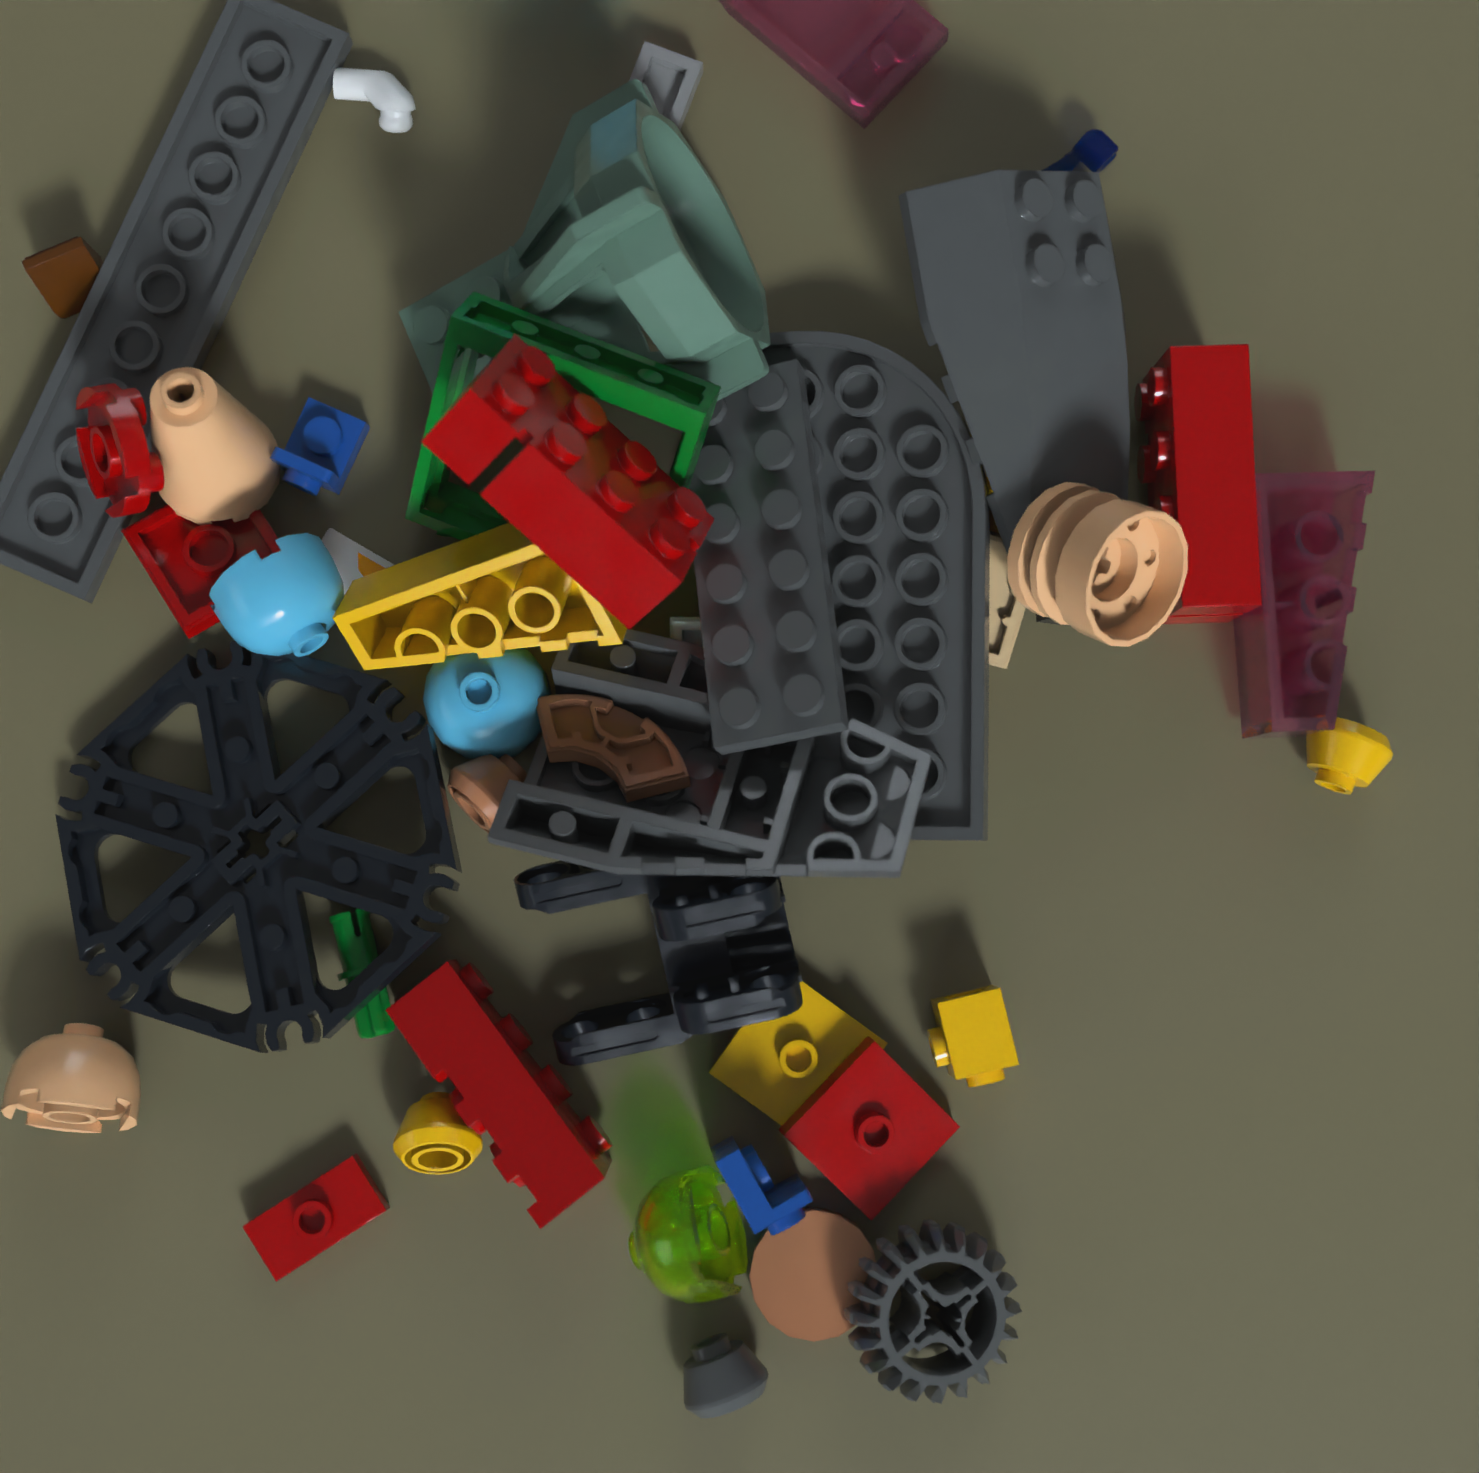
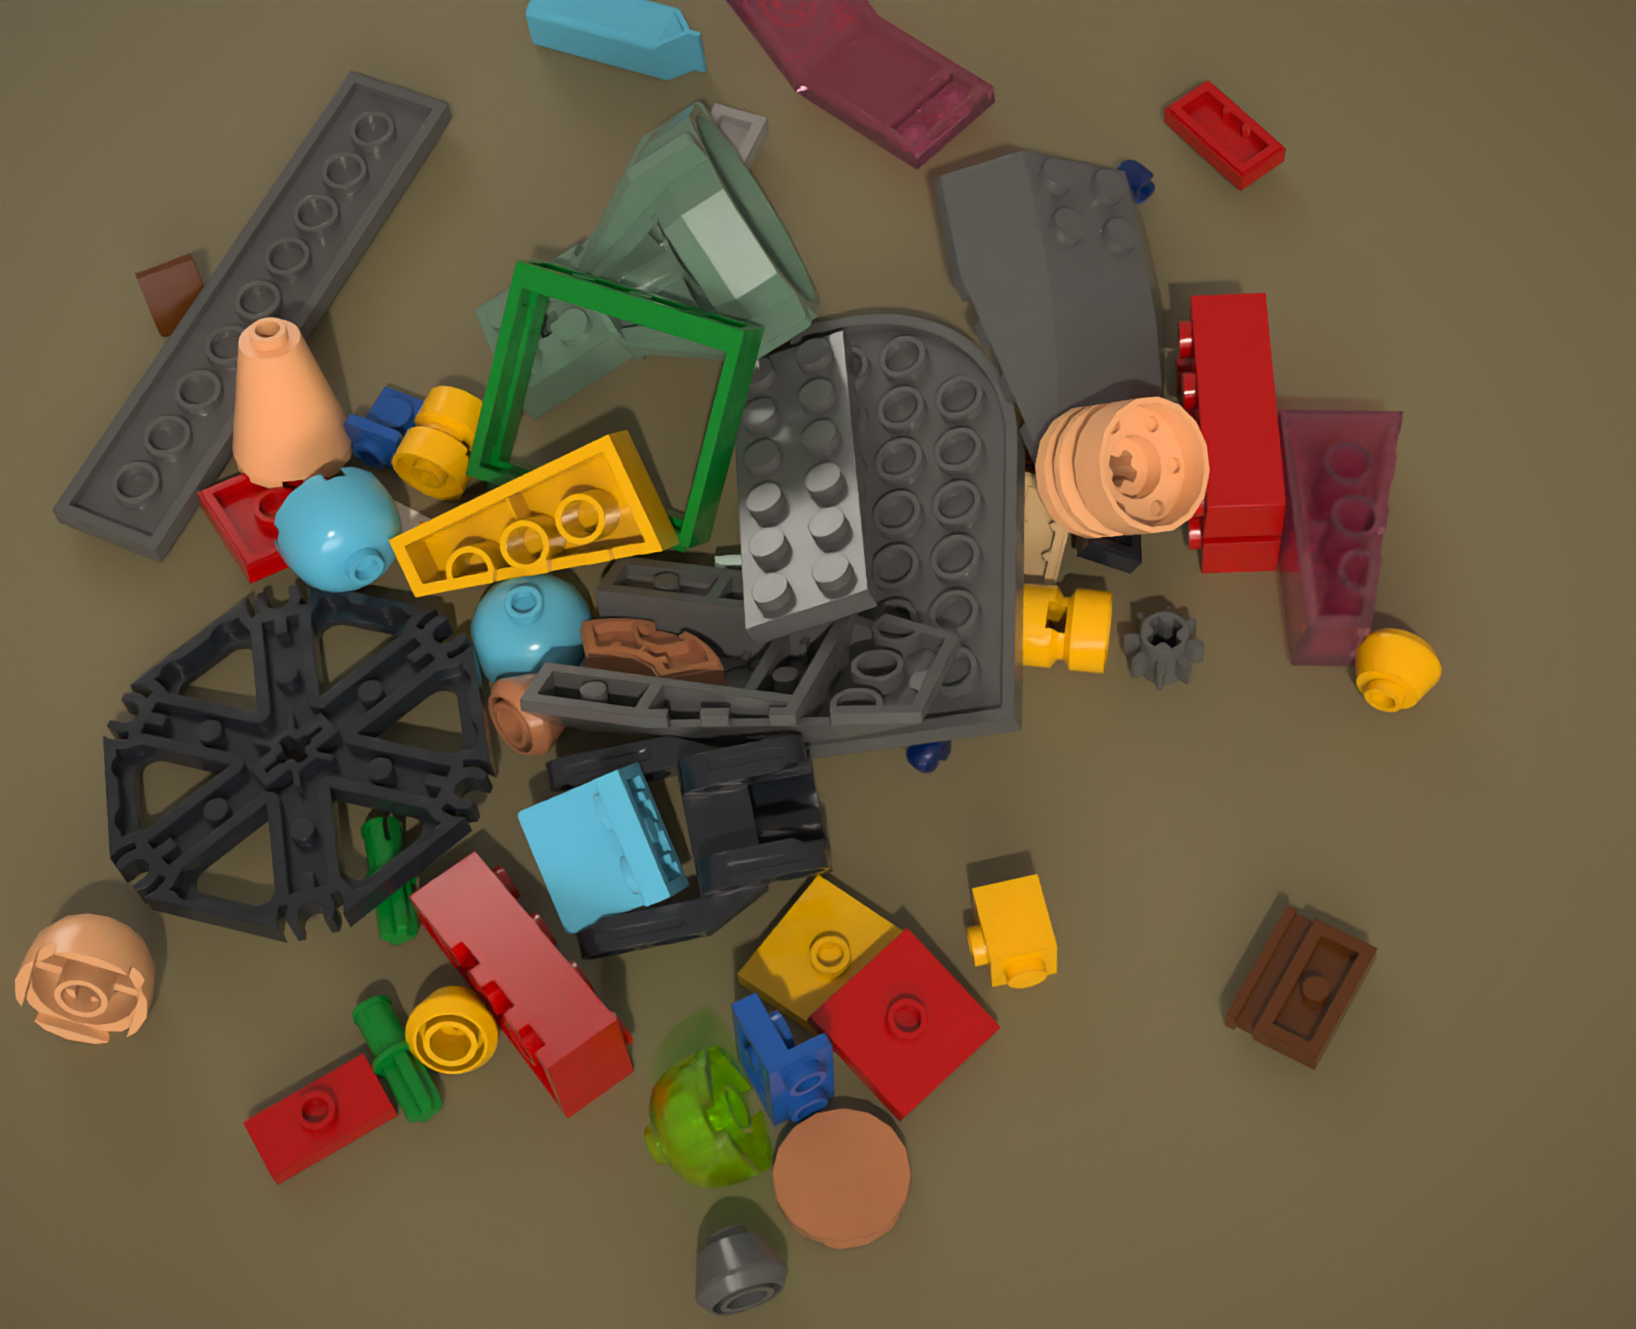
camera: 15 degrees right, 25 degrees down
(116, 449) = (205, 406): red plate -> none
(375, 1144) = (394, 1061): none -> green axle
(379, 475) = (439, 447): none -> yellow wheel
(382, 91) = (468, 149): white arm -> none
(576, 484) = (619, 385): red piece -> none
(581, 973) = (603, 849): none -> medium azure bracket
(973, 1284) = (979, 1221): dark grey gear -> none
(1045, 704) = (1086, 630): none -> yellow wheel
(1136, 729) = (1163, 648): none -> dark grey gear
(1192, 94) = (1224, 135): none -> red plate
(1242, 1085) = (1301, 987): none -> reddish brown plate

